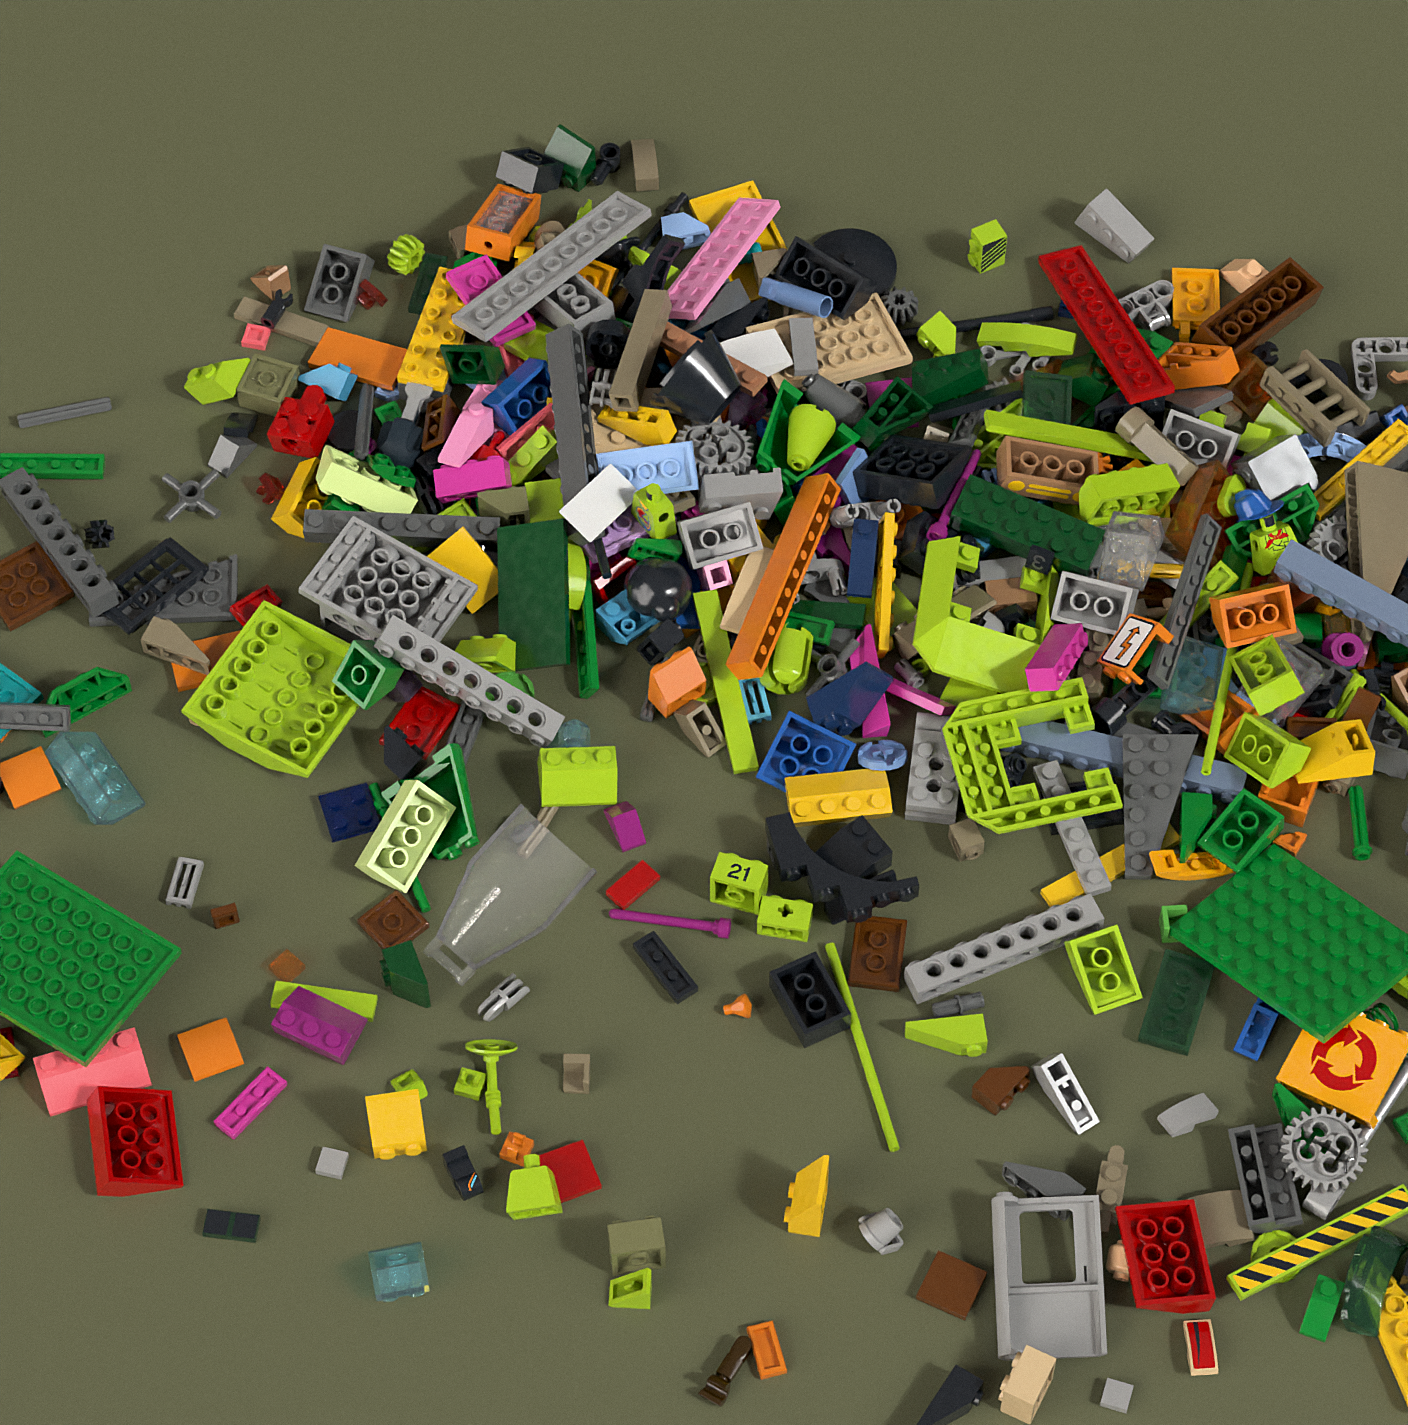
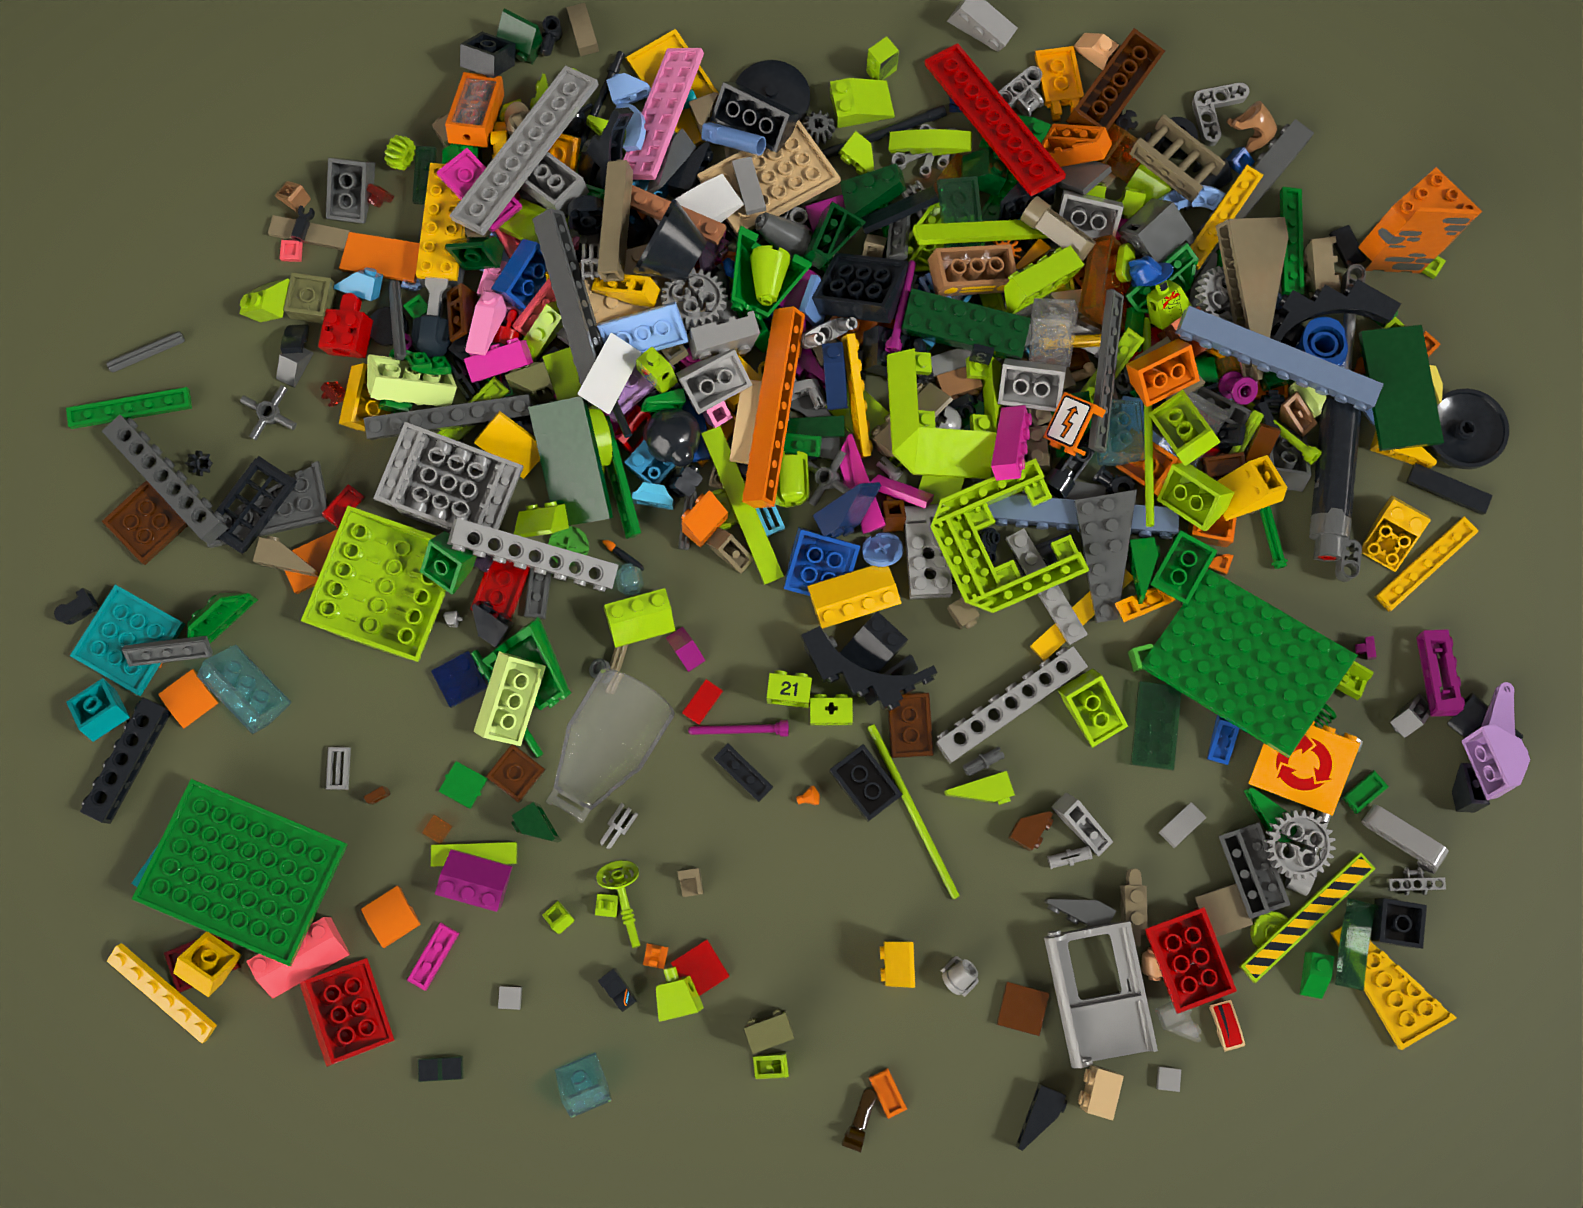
camera: 10 degrees left, 20 degrees up
(328, 926) = (463, 785): none -> green piece
(356, 745) = (452, 618): none -> light grey piece
(396, 1124) = (556, 965): yellow slope -> none
(561, 703) = (611, 546): none -> black piece
(621, 654) = (653, 495): none -> medium azure slope
(682, 269) = (635, 129): none -> light blue tile
(902, 720) = (893, 514): none -> reddish brown brick
(954, 287) = (860, 101): none -> lime slope
(1042, 1127) = (1055, 860): none -> light grey pin
(1139, 1330) = (1178, 1023): none -> clear slope

